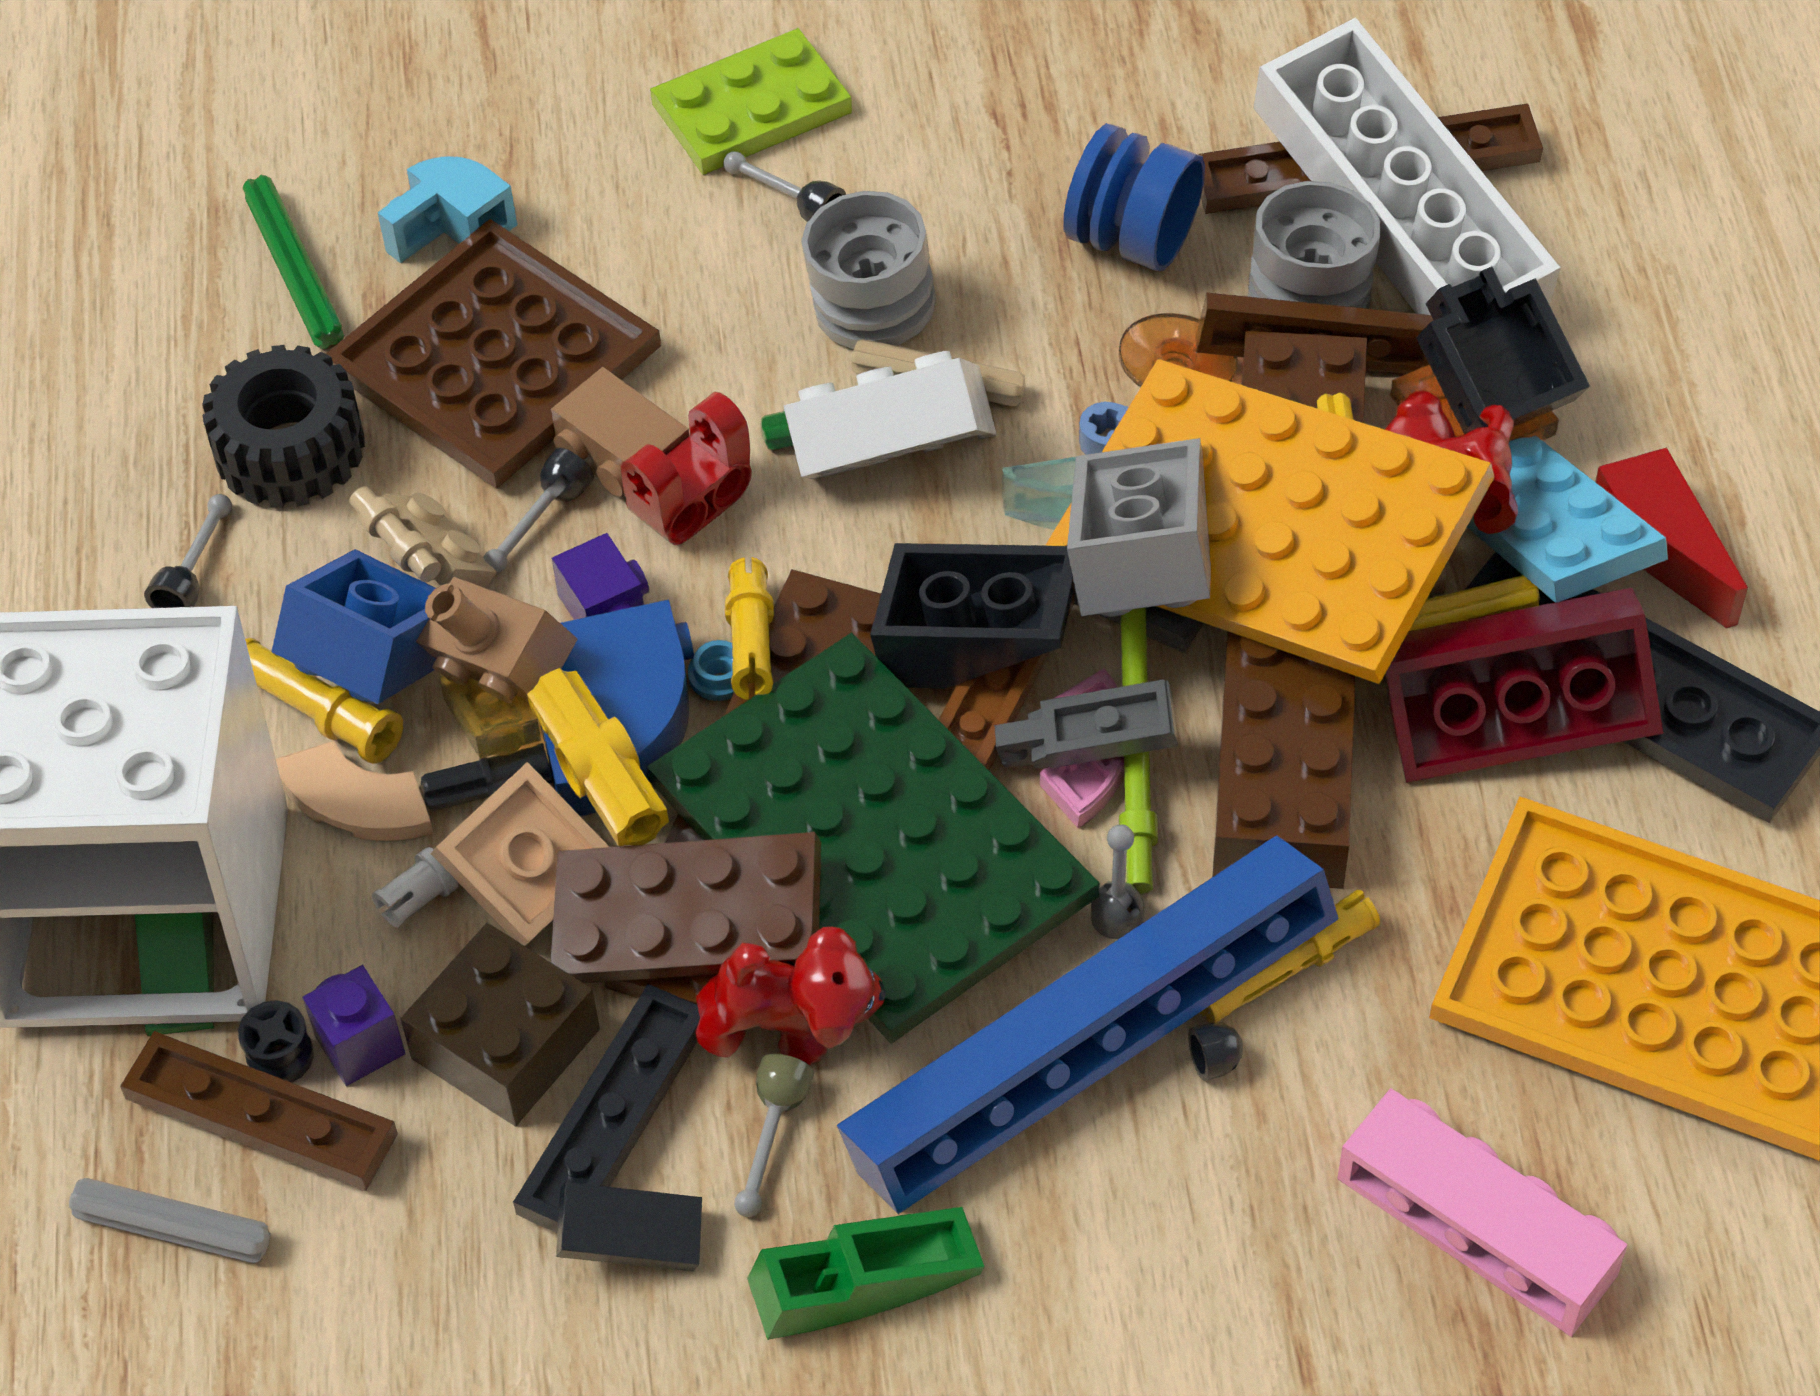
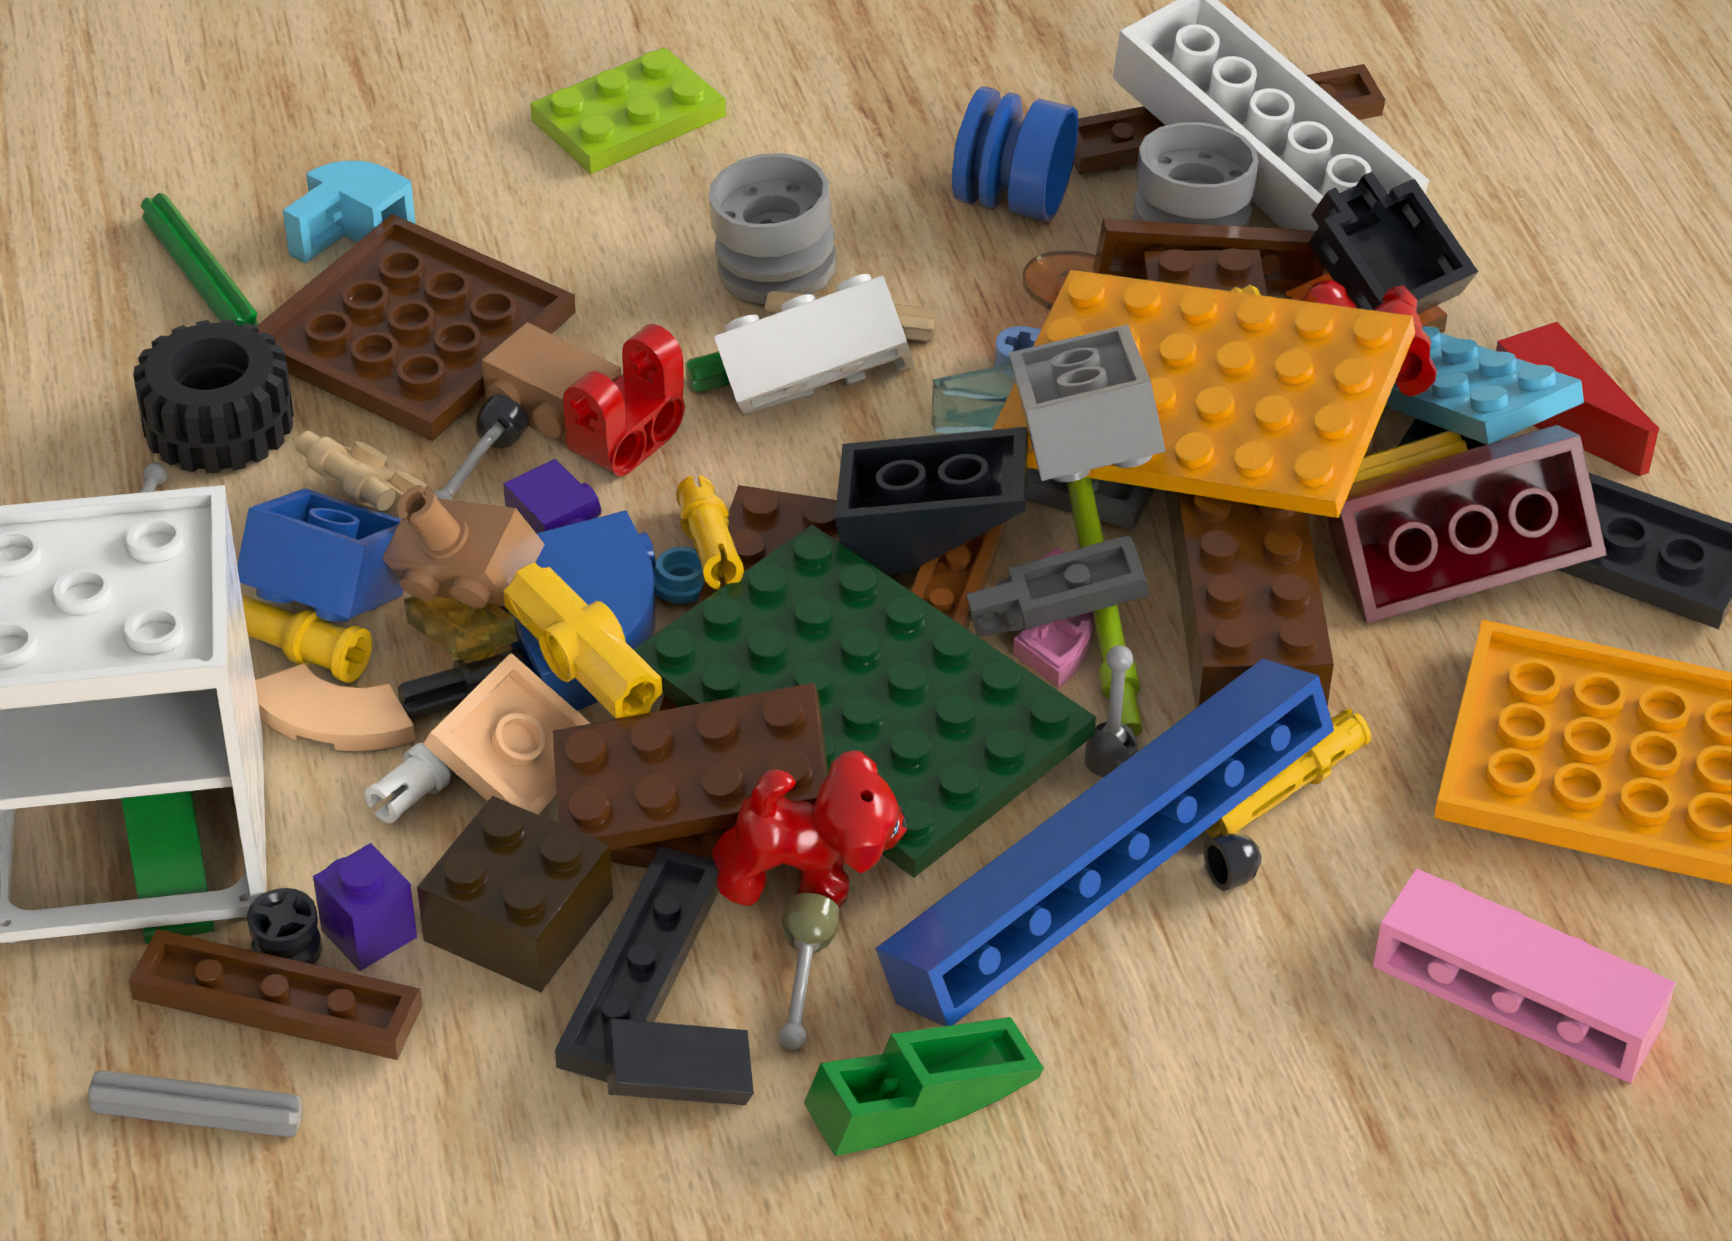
camera: 10 degrees left, 10 degrees down
(809, 197) = (698, 181): hinge -> none

